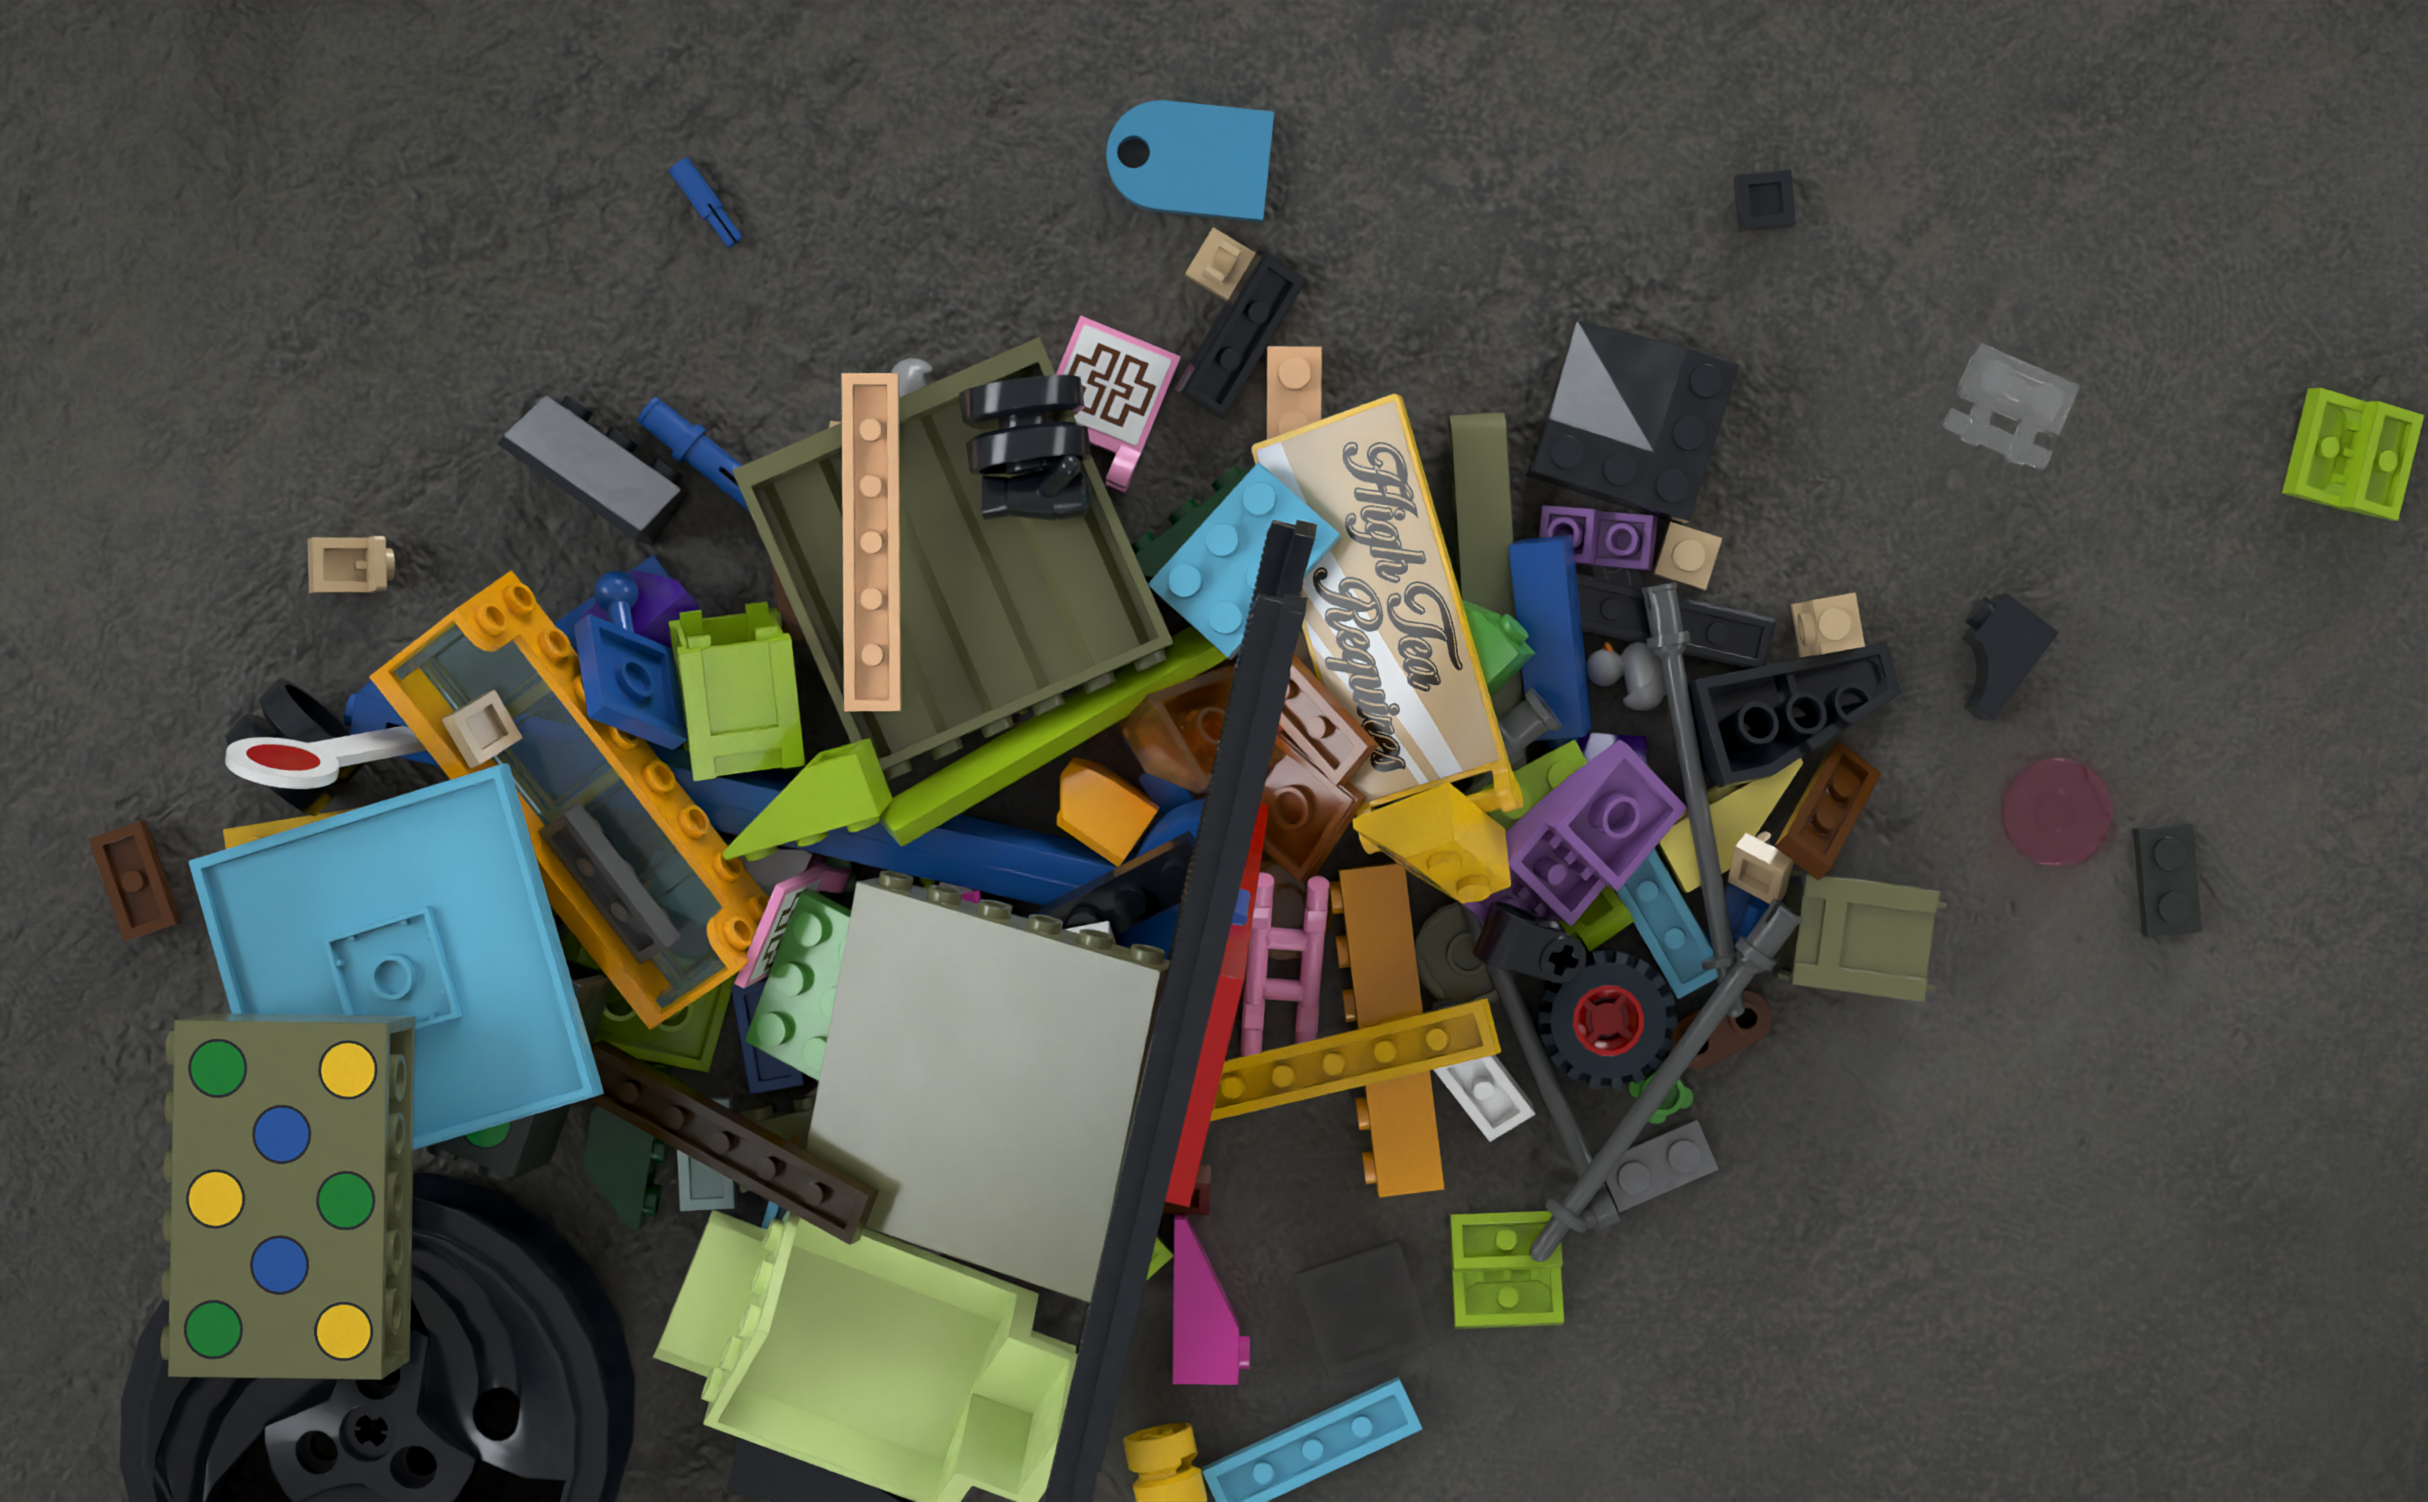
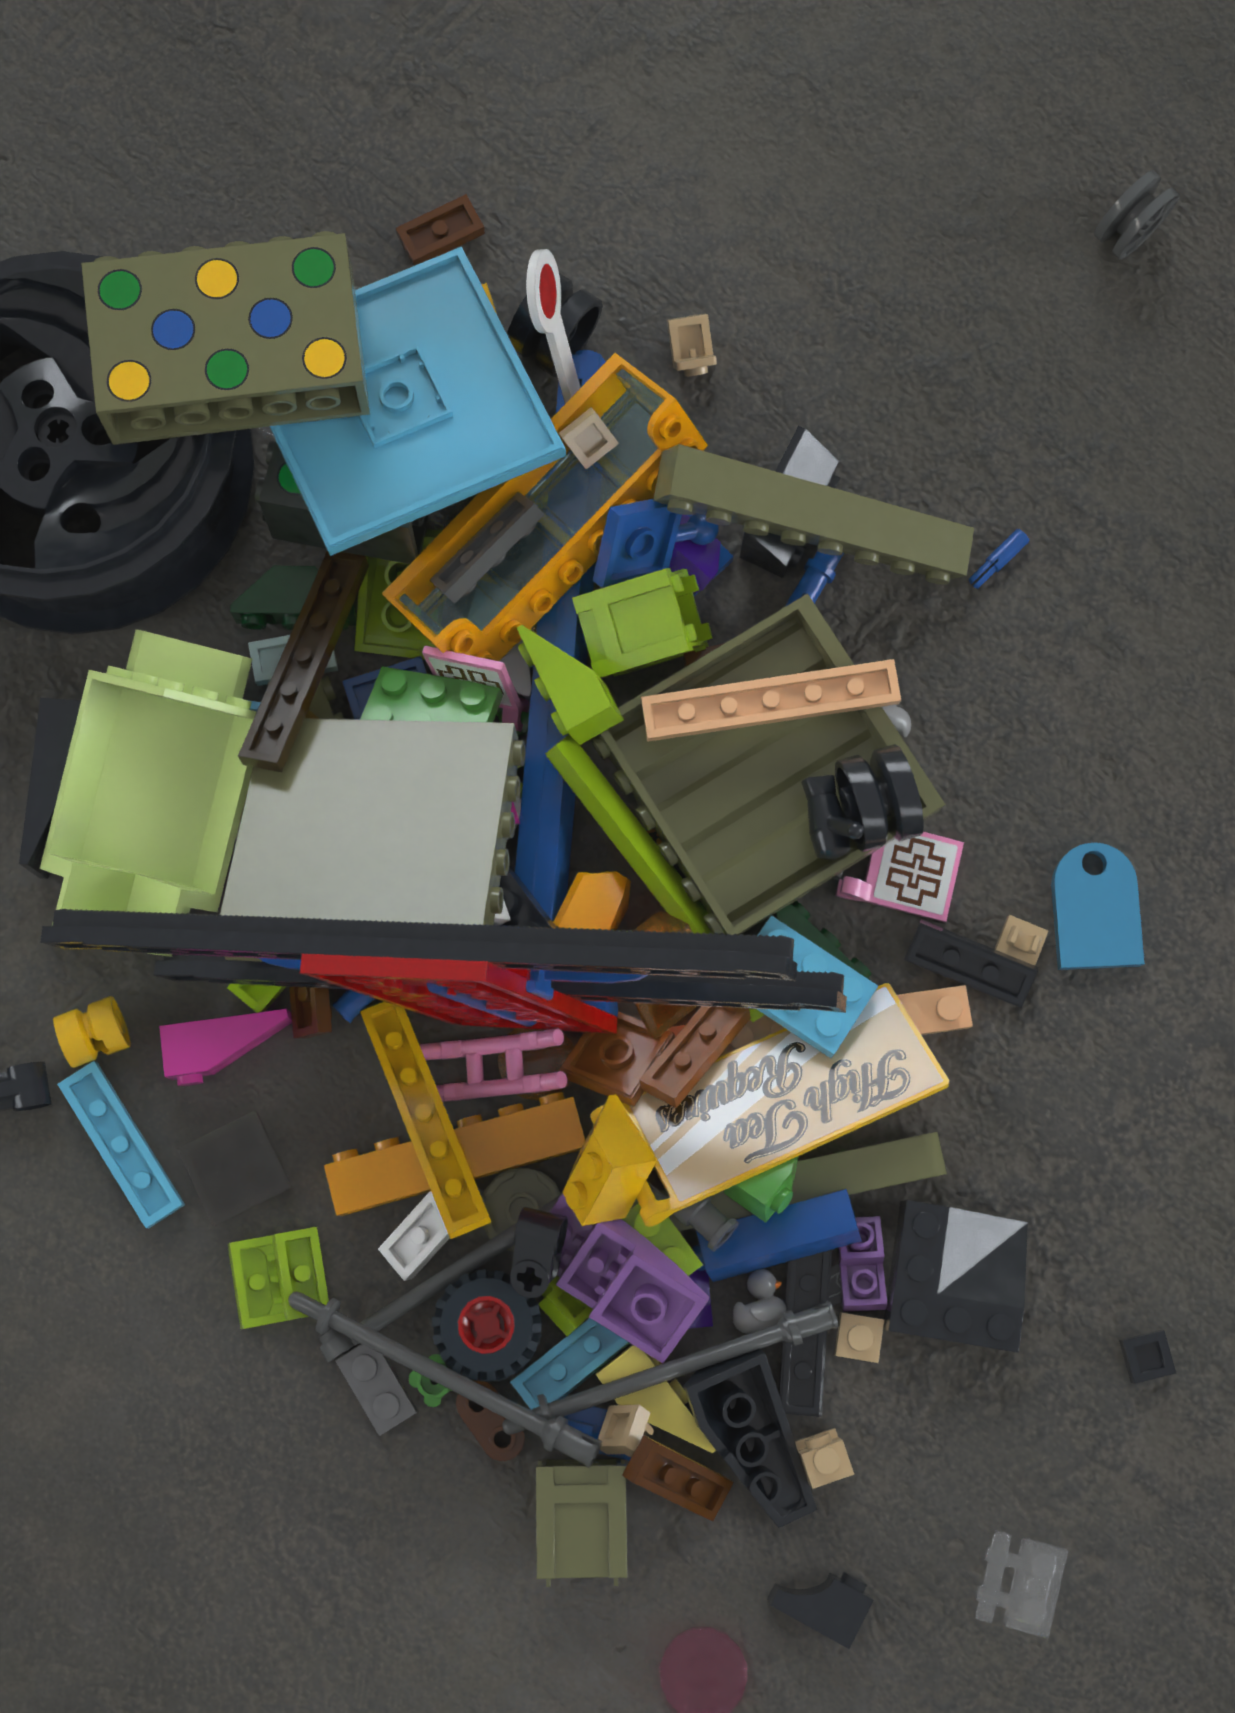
camera: 80 degrees right, 10 degrees down
(624, 444) = (812, 514): none -> olive brick

